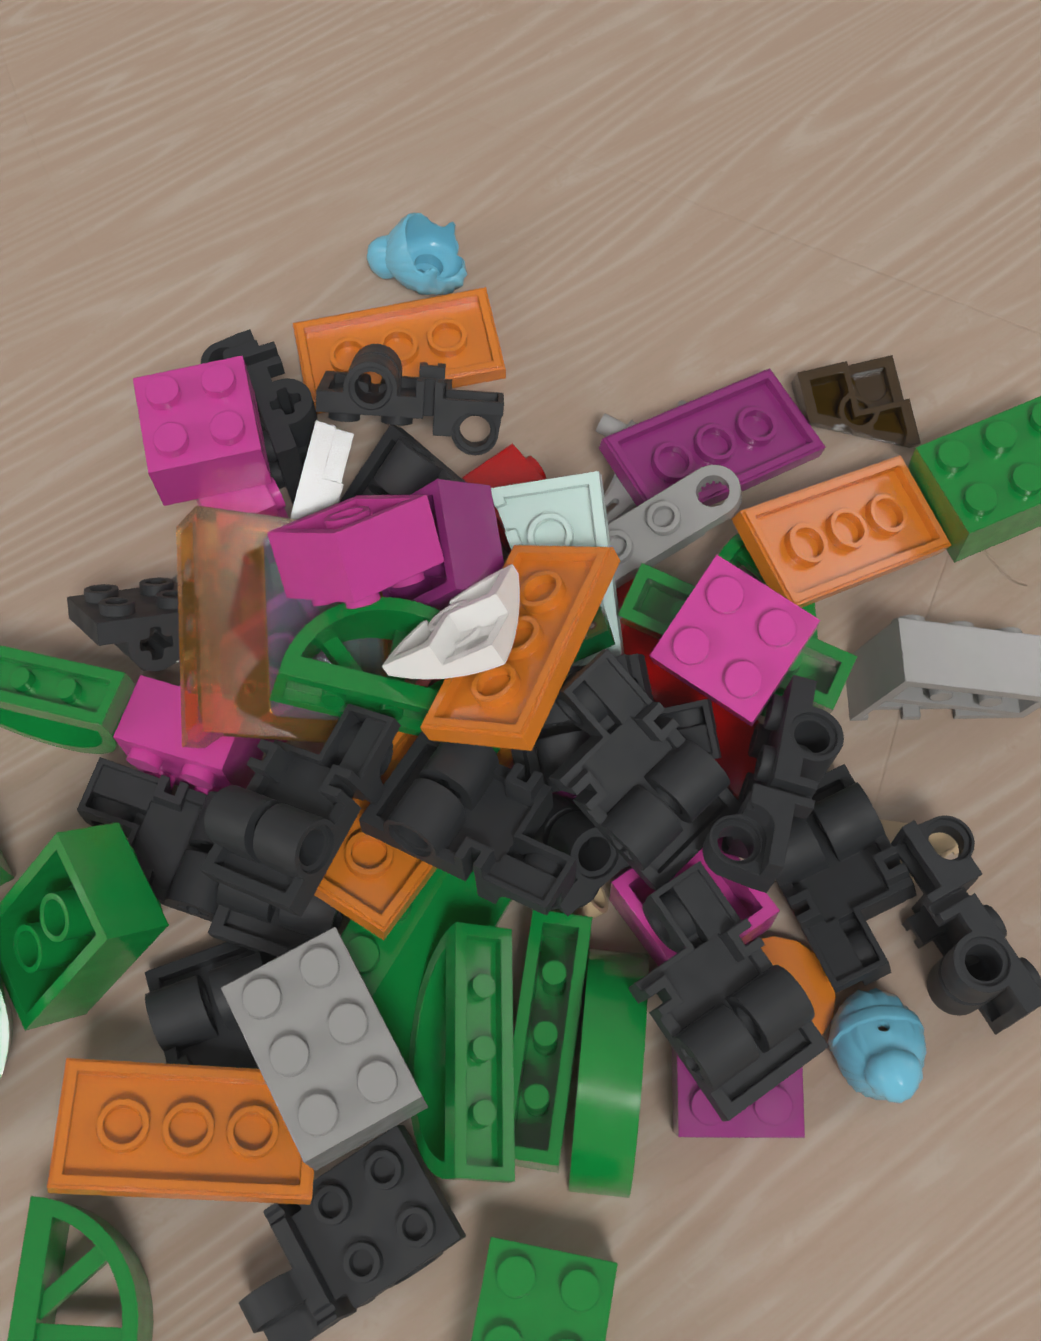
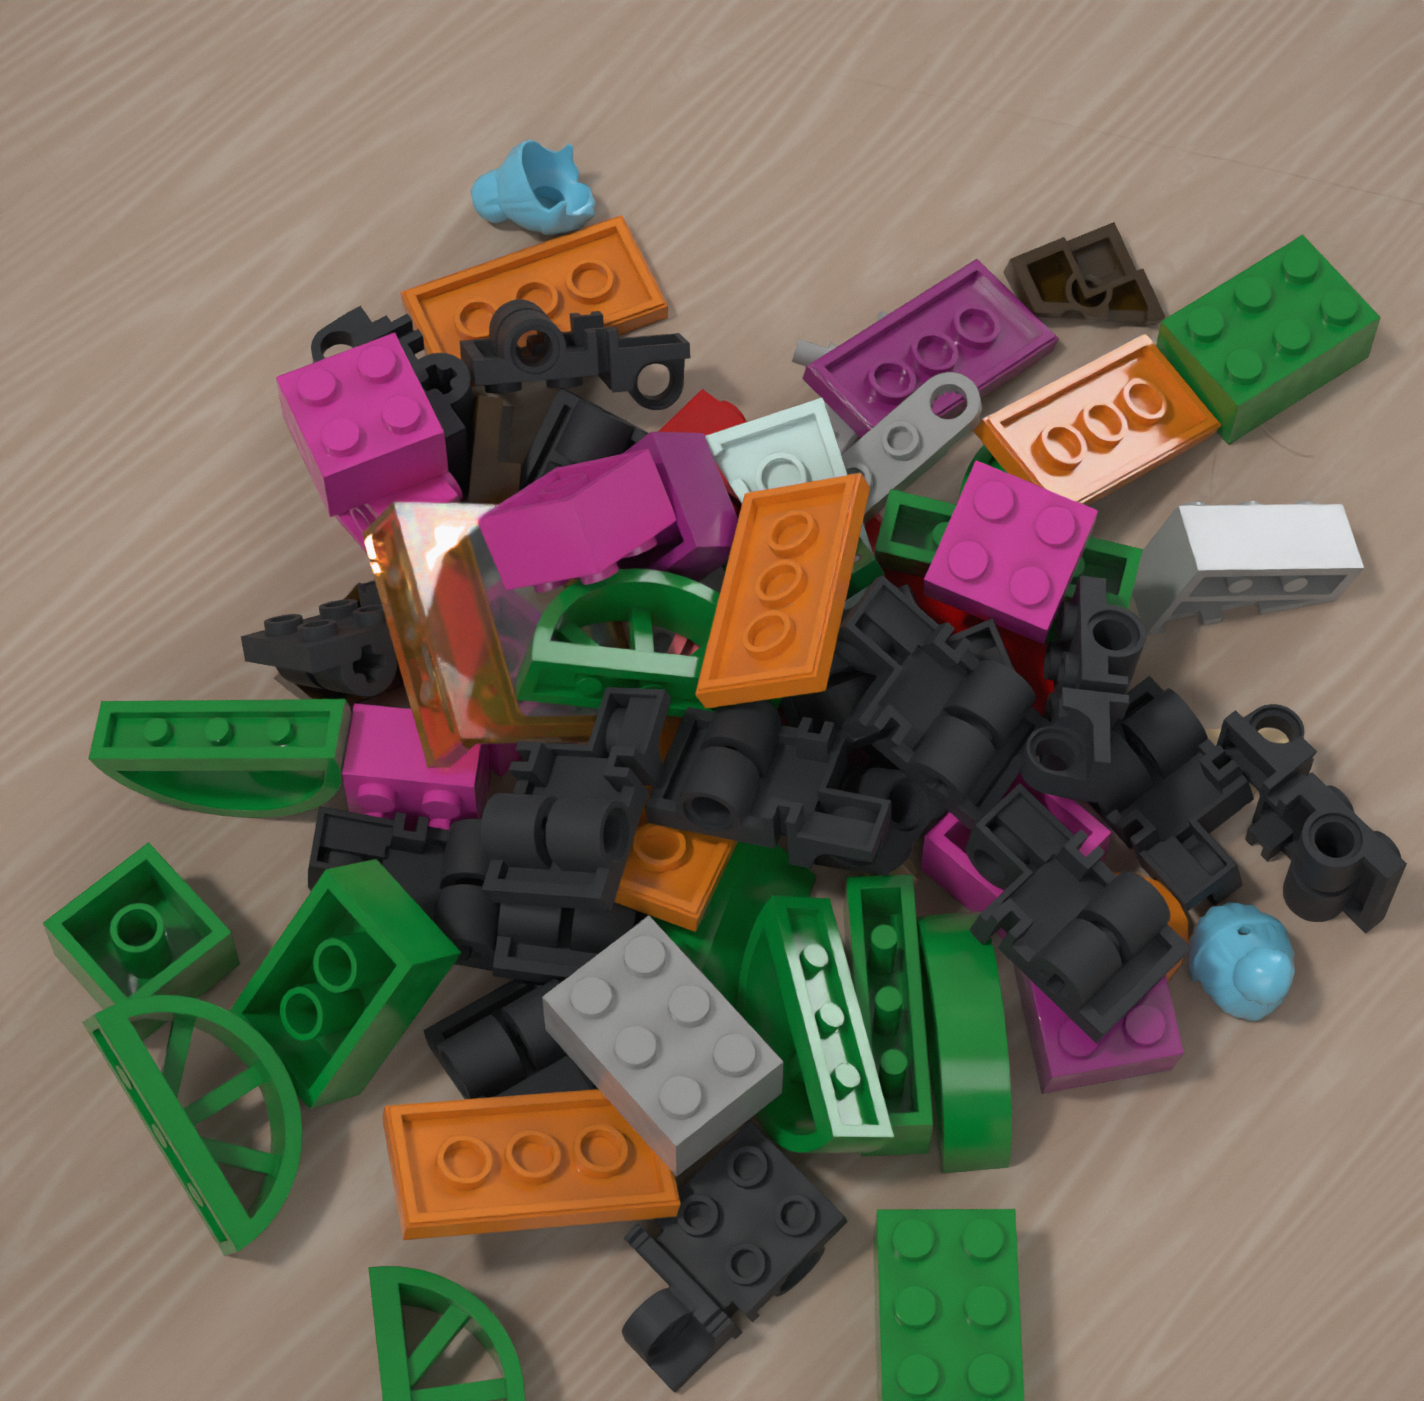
camera: 15 degrees left, 5 degrees down
(465, 636) = (723, 590): white brick -> none

